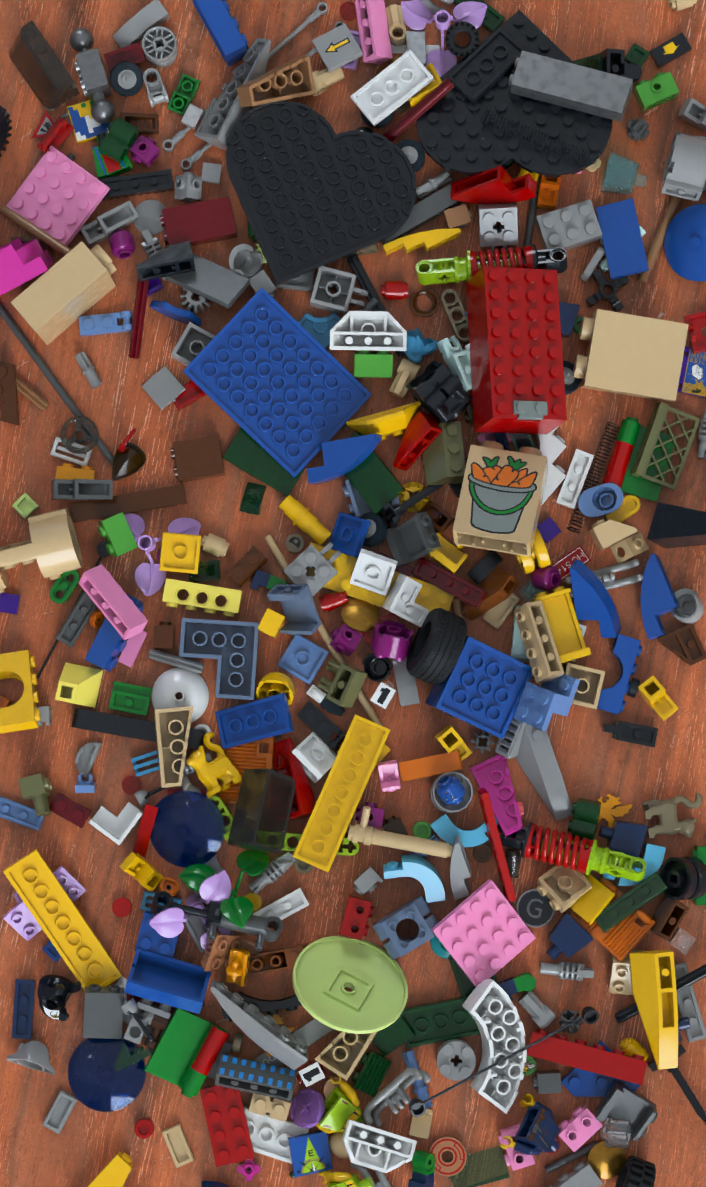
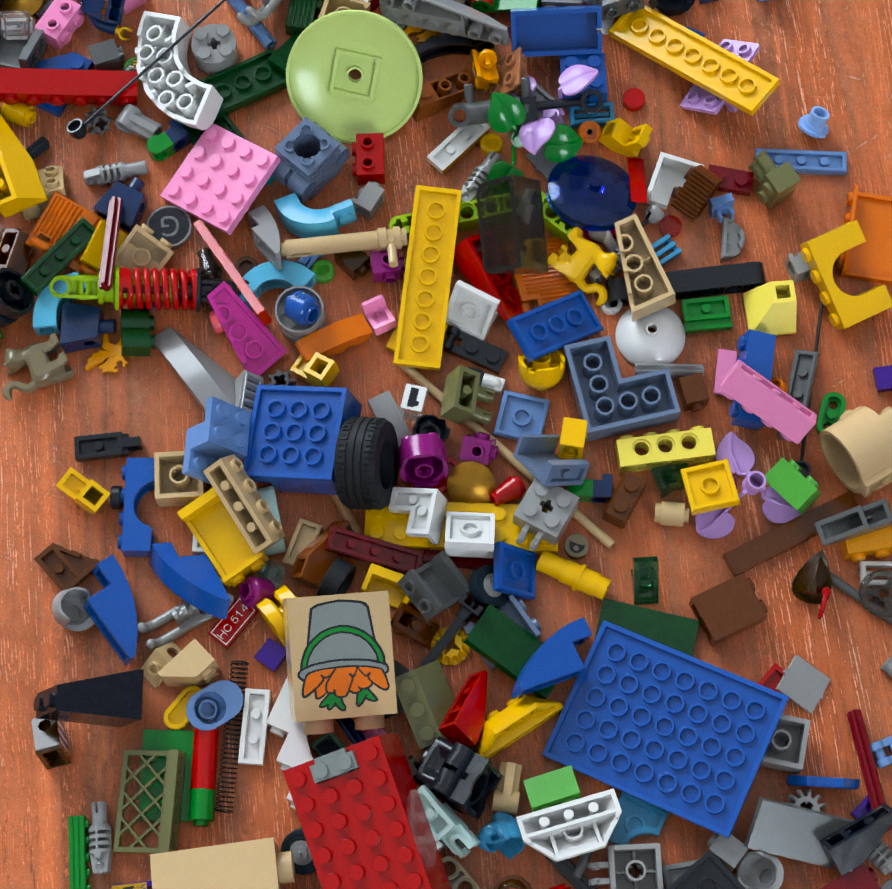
camera: 165 degrees right, 15 degrees down
(102, 801) = (696, 191): none -> reddish brown brick
(587, 895) = (110, 243): none -> axle

